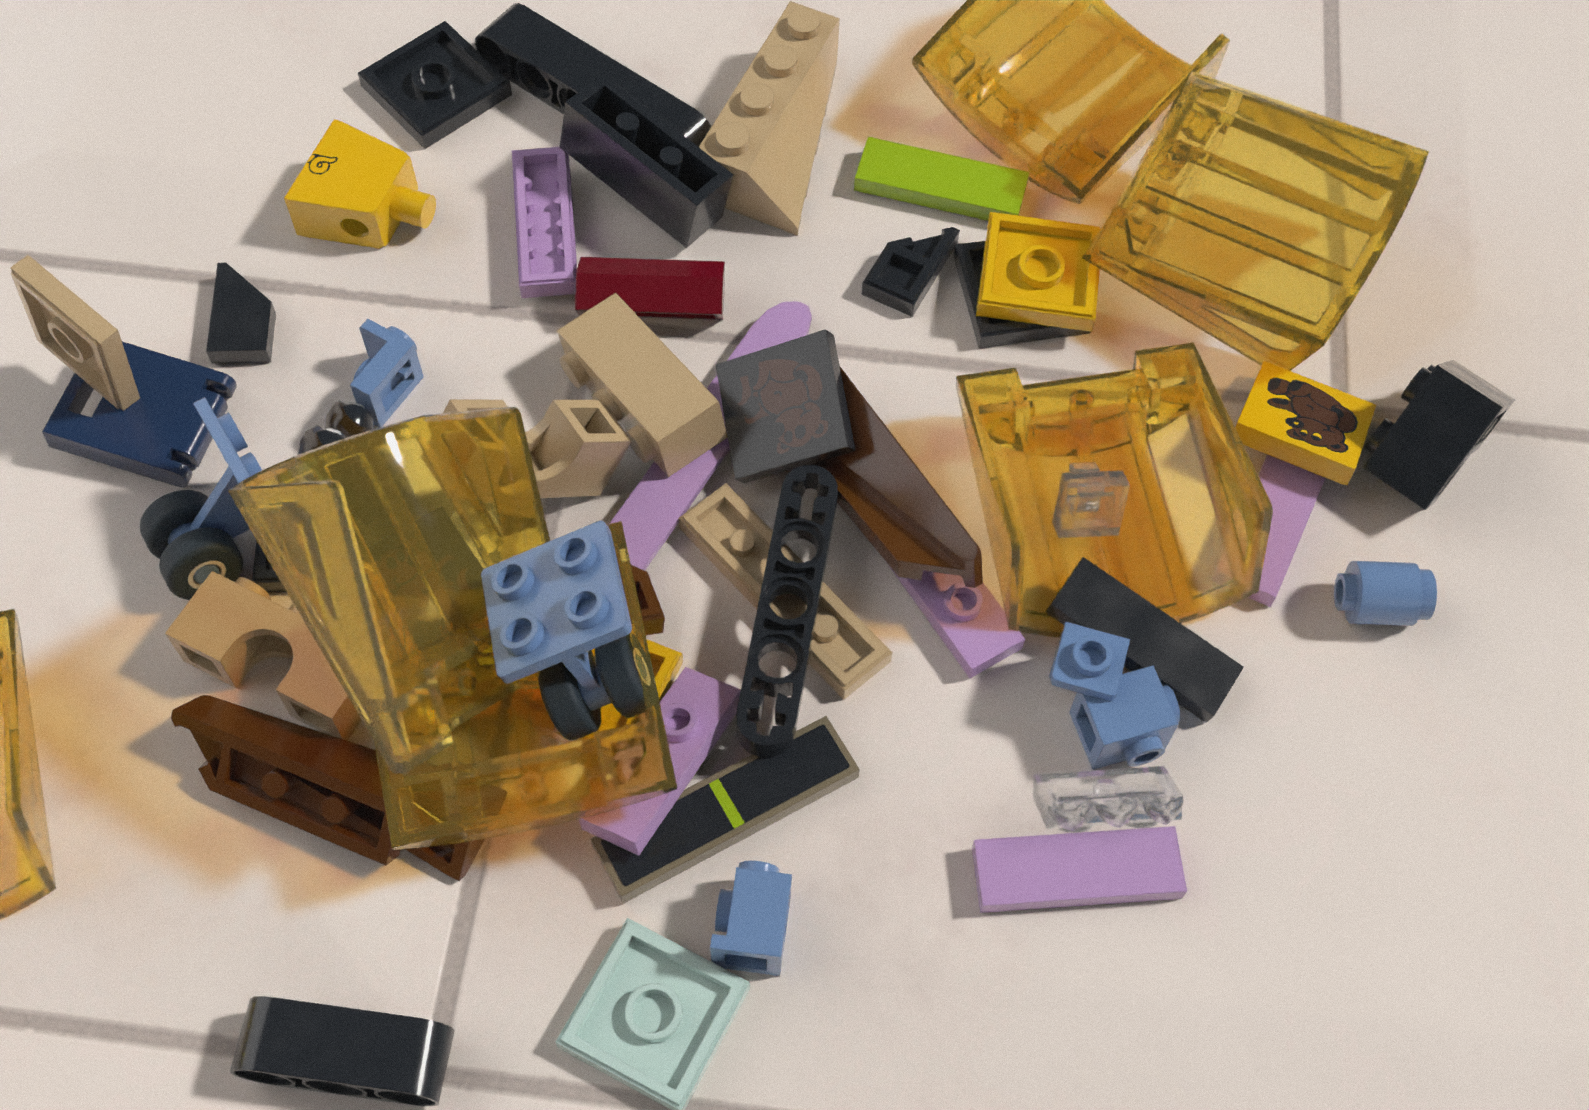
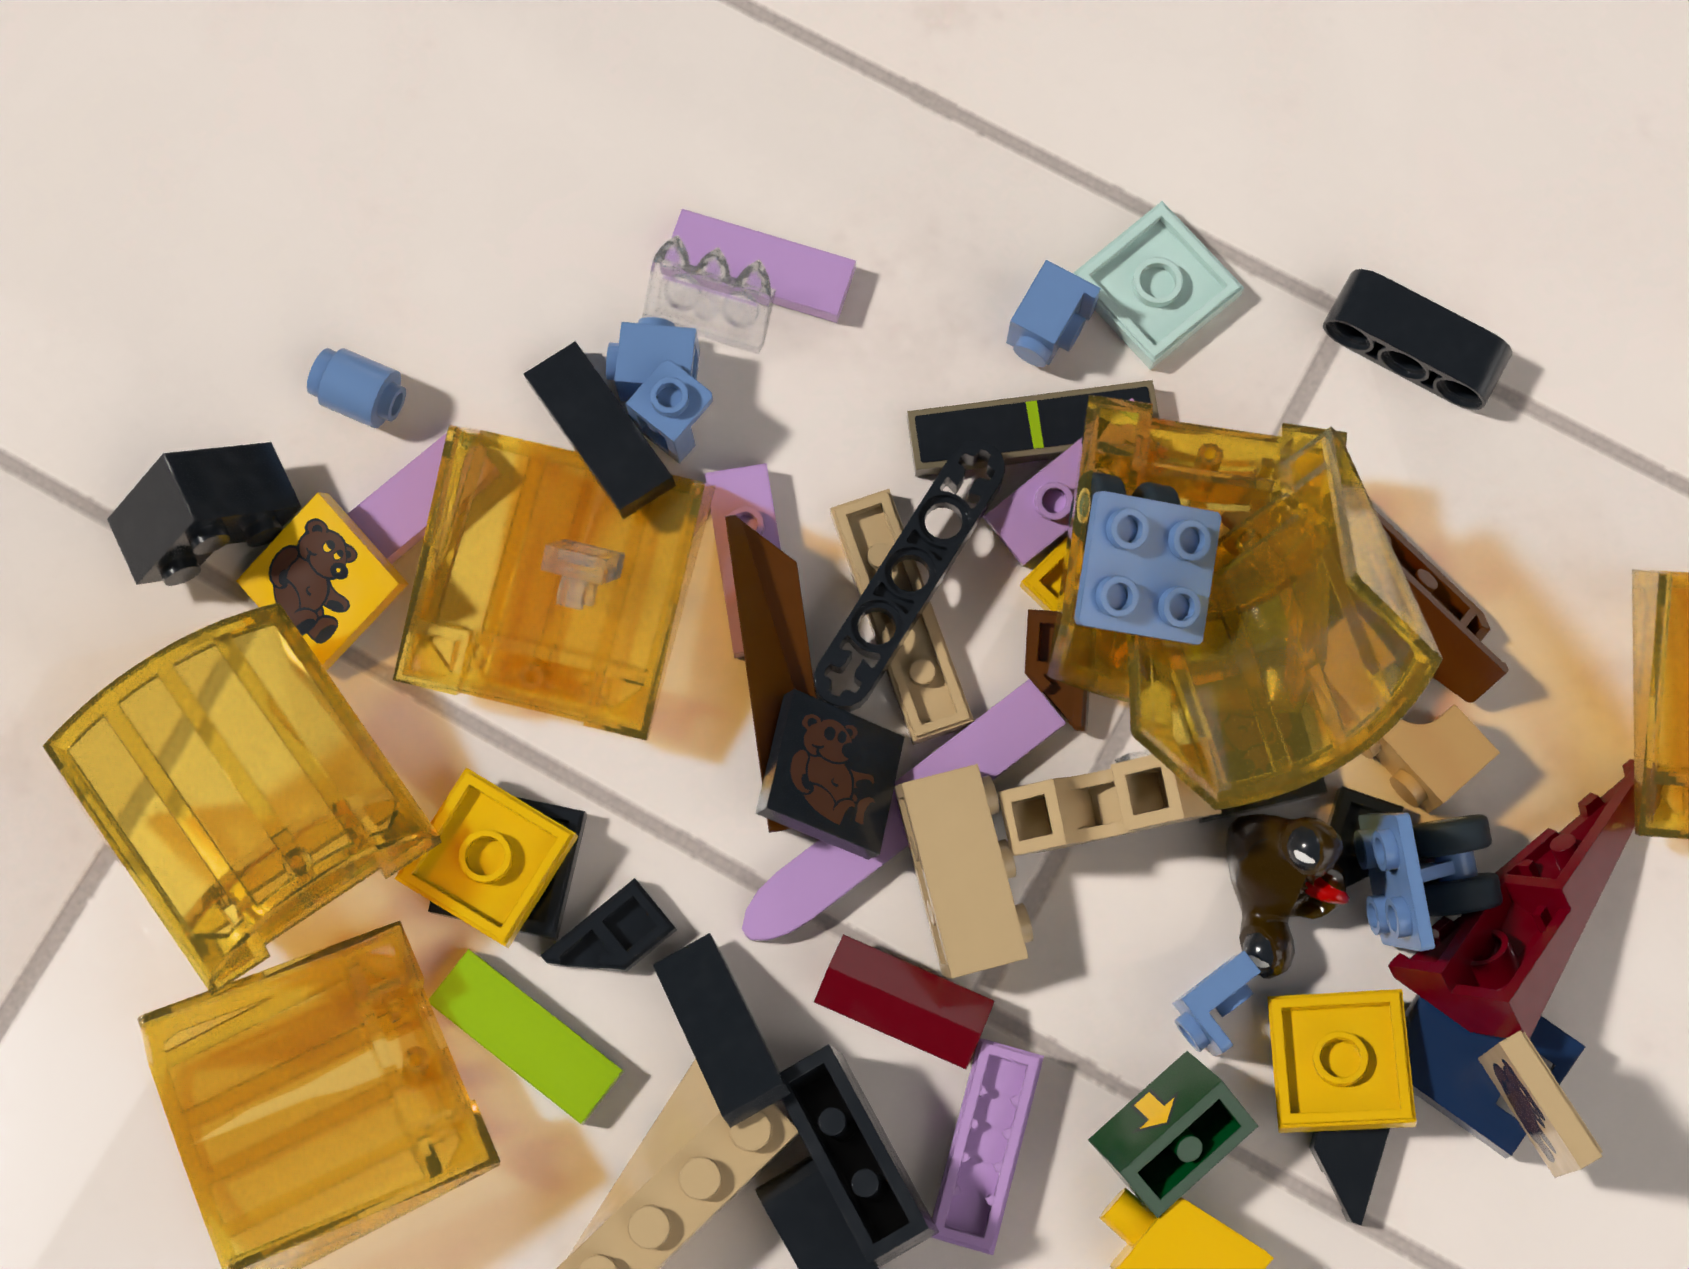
camera: 155 degrees left, 15 degrees up
(97, 545) = (1503, 962): none -> dark red wedge
(262, 360) = (1341, 1061): none -> yellow tile
(392, 258) = (1173, 1133): none -> dark green brick
(790, 206) = (721, 1030): none -> black tile

